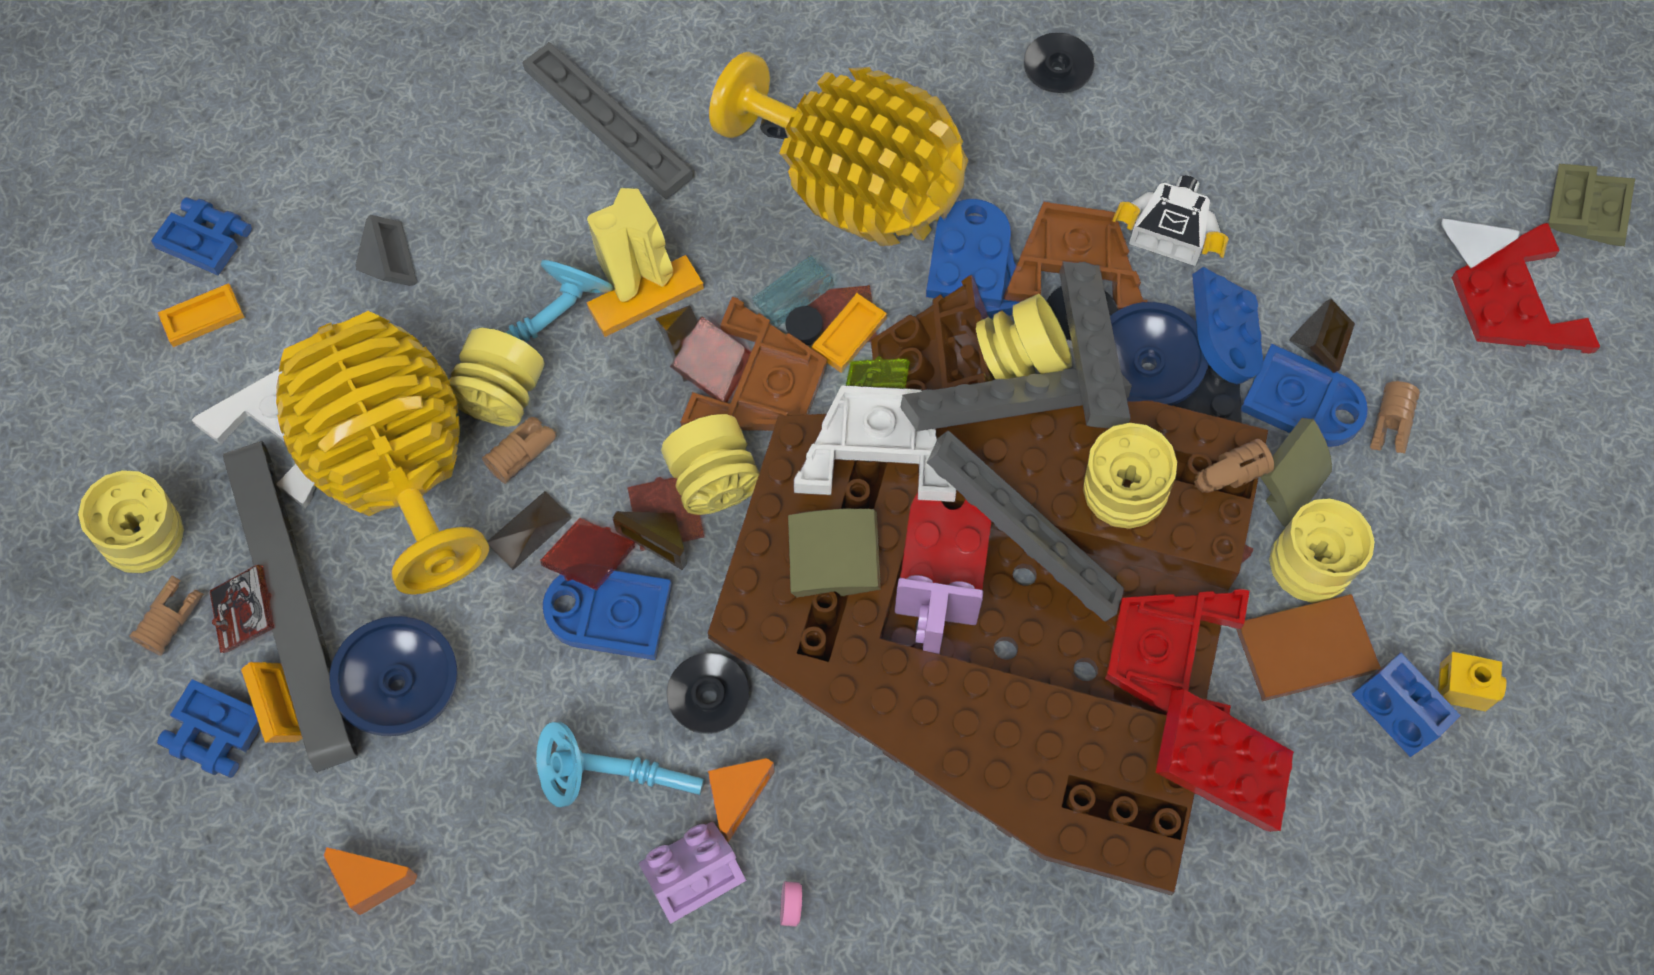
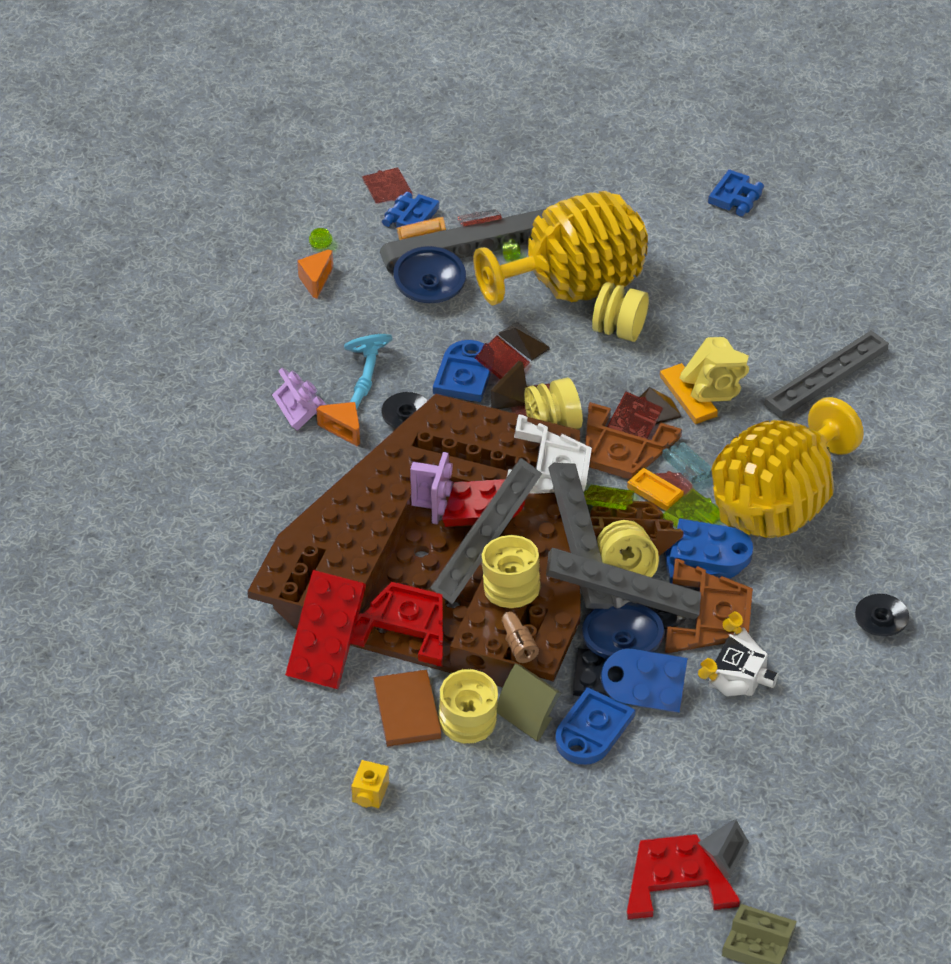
camera: 95 degrees right, 20 degrees down
(117, 507) = (534, 168): light yellow wheel -> none
(125, 780) = (386, 185): none -> clear red piece
(161, 622) = (477, 190): medium nougat hinge -> none
(200, 315) = (680, 197): light orange tile -> none
(261, 873) = (320, 238): none -> clear neon green plate
(323, 555) = (511, 250): none -> clear neon green plate
(385, 252) = (722, 274): dark grey slope -> none
(518, 449) = (571, 329): medium nougat hinge -> none
(573, 285) = (687, 348): medium azure dish -> none
(791, 904) = (274, 442): bright pink tile -> none
(805, 324) = (661, 466): black tile -> none
(834, 552) = (477, 441): olive slope -> none
(890, 284) = (693, 507): none -> clear neon green piece
(1325, 335) = (640, 744): dark brown slope -> none
(1396, 413) = (573, 777): medium nougat hinge -> none
(1406, 705) = (356, 739): blue brick -> none

